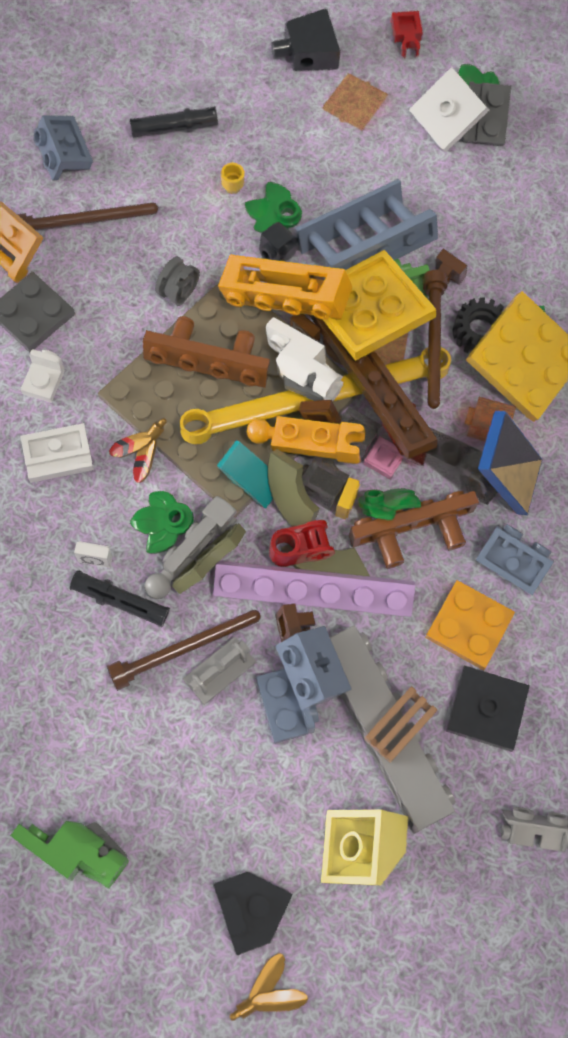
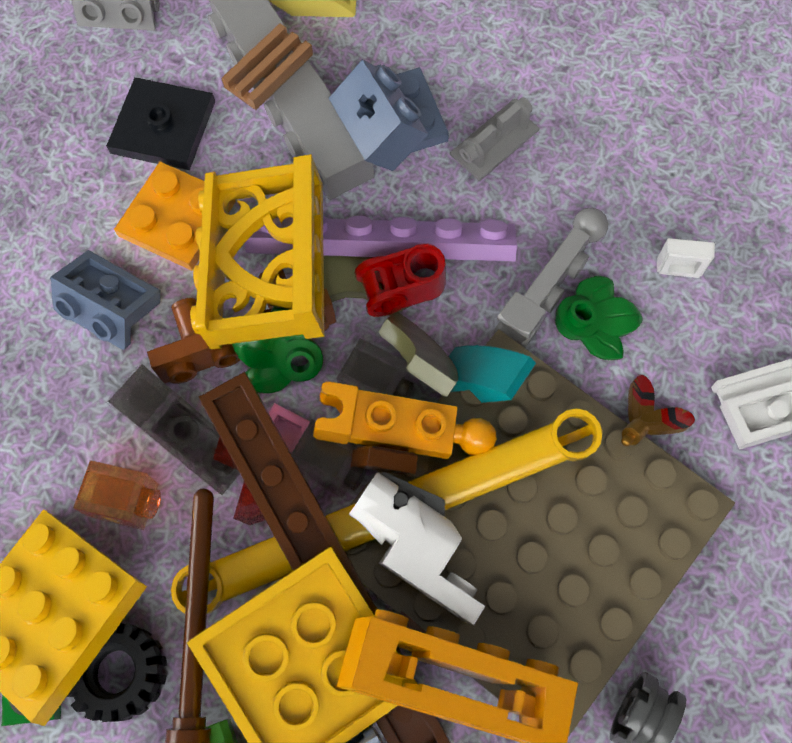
camera: 175 degrees left, 0 degrees up
(119, 598) = (641, 212): black pin -> none
(124, 672) = (615, 125): reddish brown piece -> none
(206, 560) = (525, 261): olive tile -> none
(207, 359) = (626, 566): dark orange plate -> none
(291, 622) = (404, 191): reddish brown tile -> none
(347, 498) = (337, 354): yellow tile -> none
(374, 595) = (303, 293): none -> yellow fence
(510, 463) = (94, 400): tile -> none

